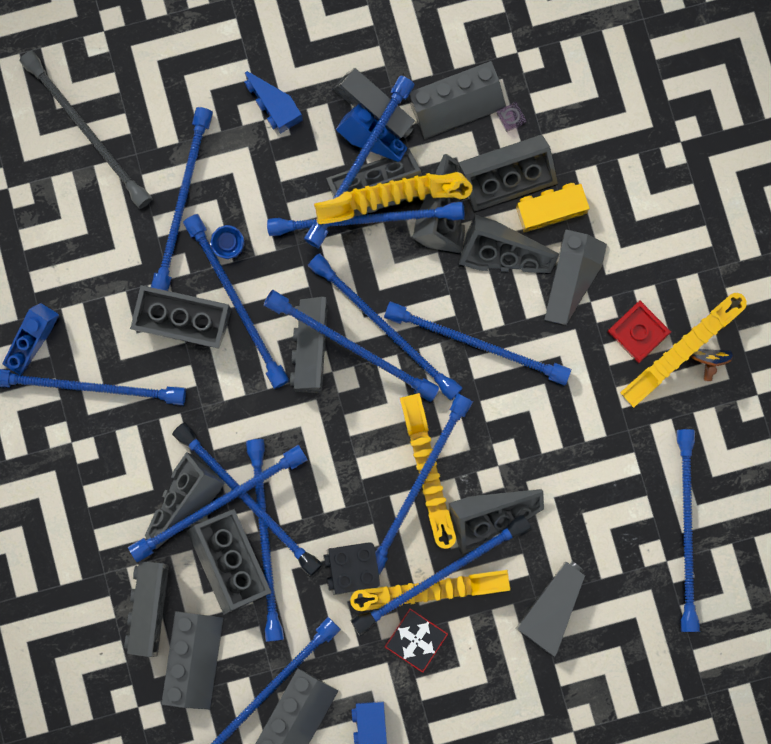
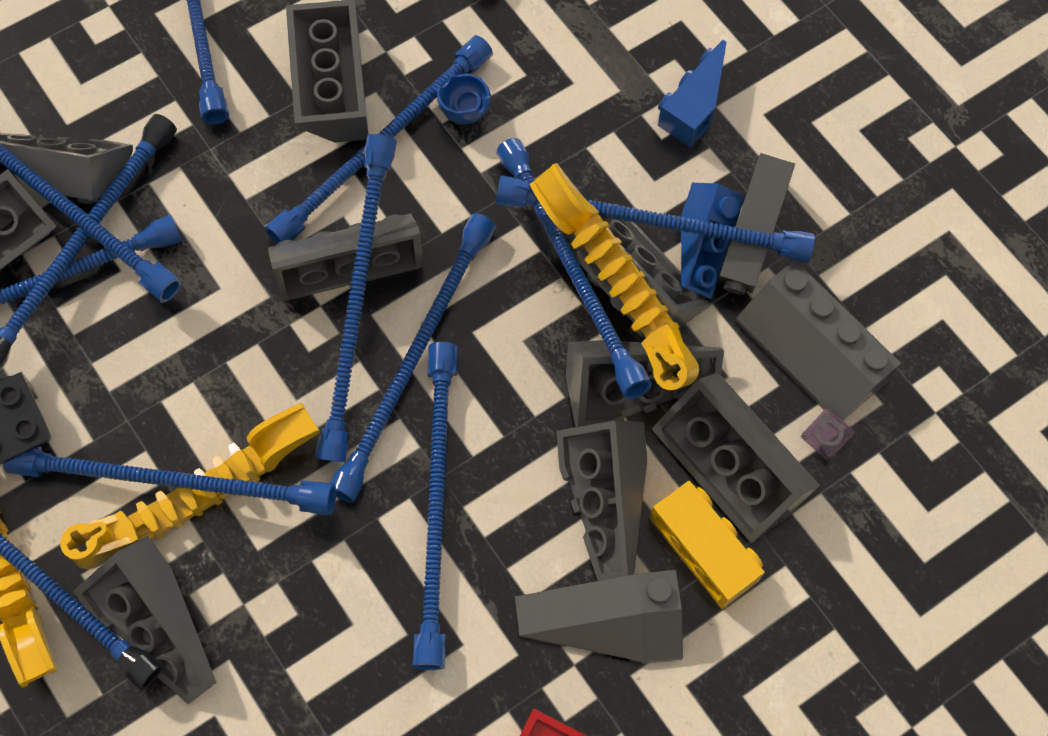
camera: 65 degrees right, 15 degrees down
(201, 121) = (629, 17): blue hose -> none

